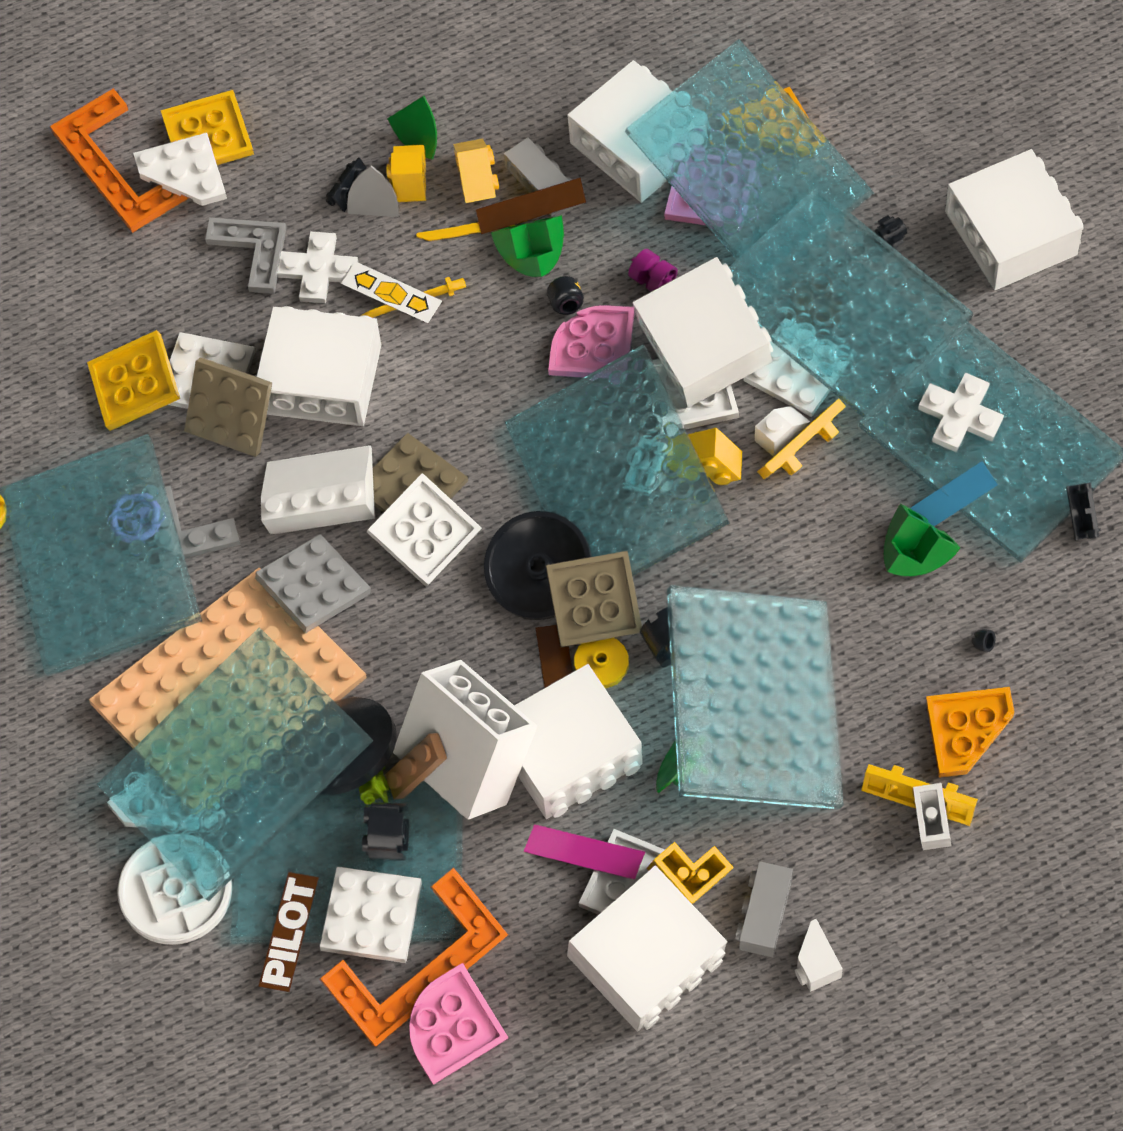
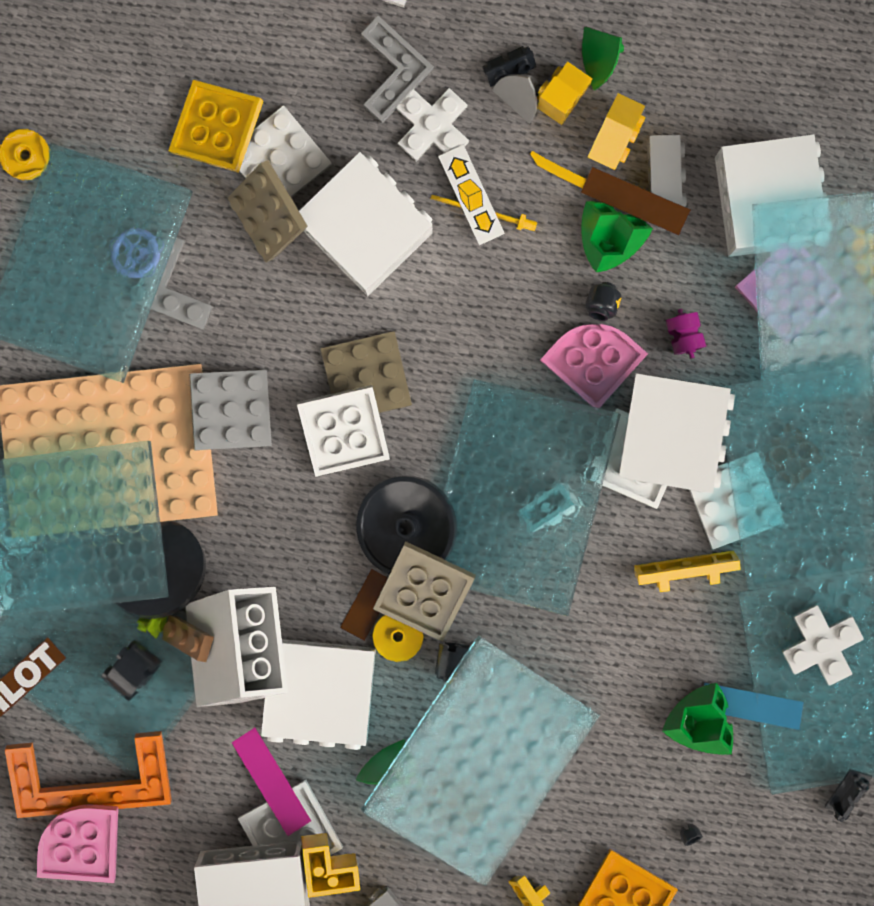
camera: 30 degrees right, 25 degrees up
(318, 490) = (290, 330): white slope -> none
(371, 914) = (81, 718): white plate -> none
(718, 455) = (607, 540): yellow brick -> none
(779, 429) = (680, 546): white slope -> none

